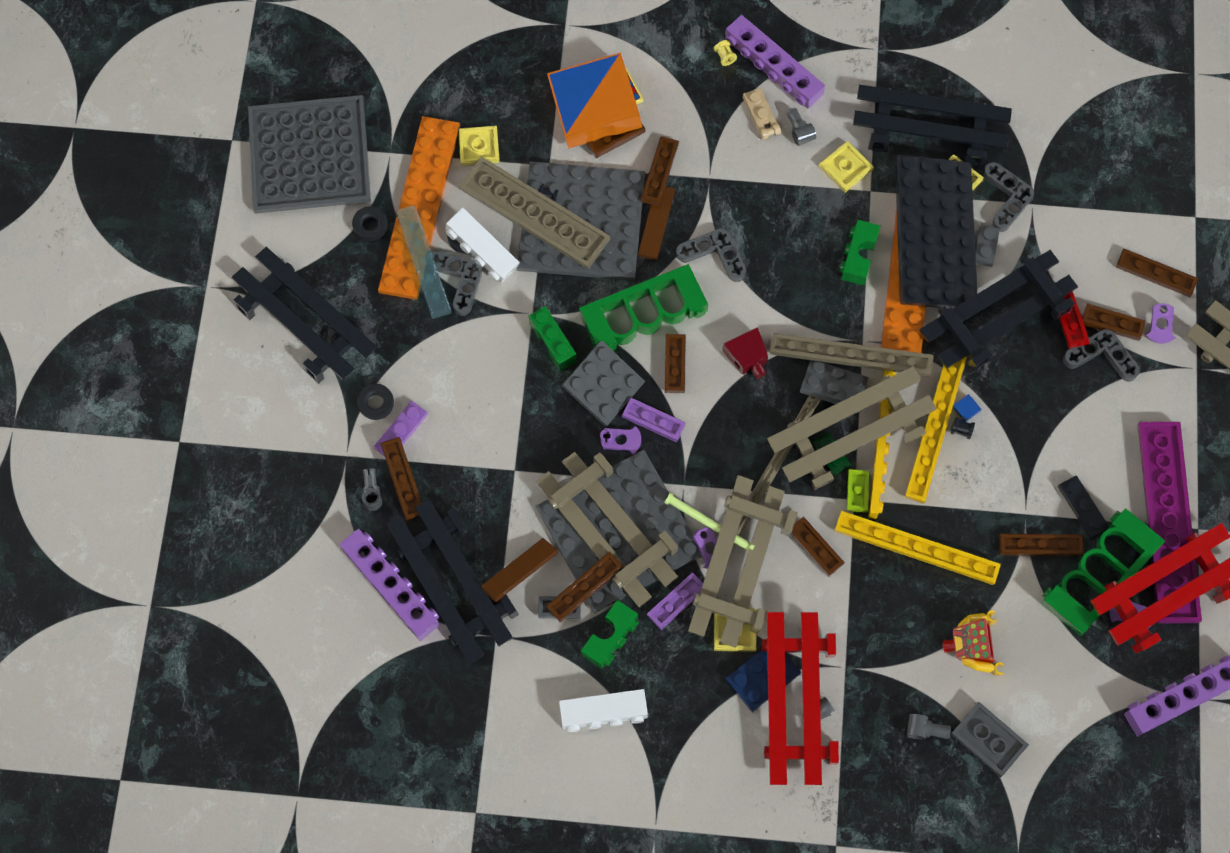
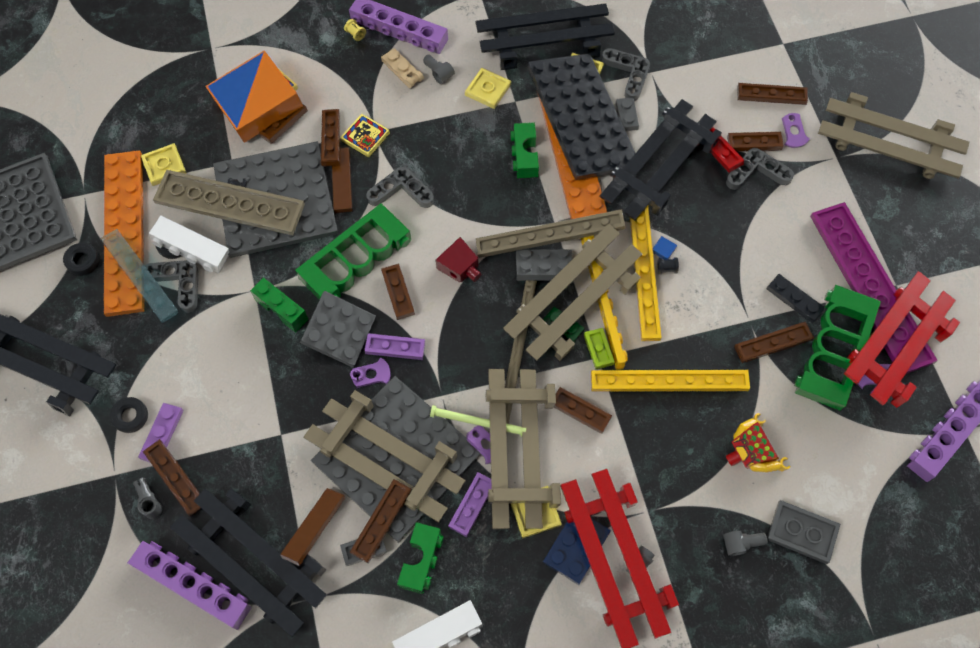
camera: 20 degrees left, 5 degrees down
(696, 179) = (365, 135): none -> tile

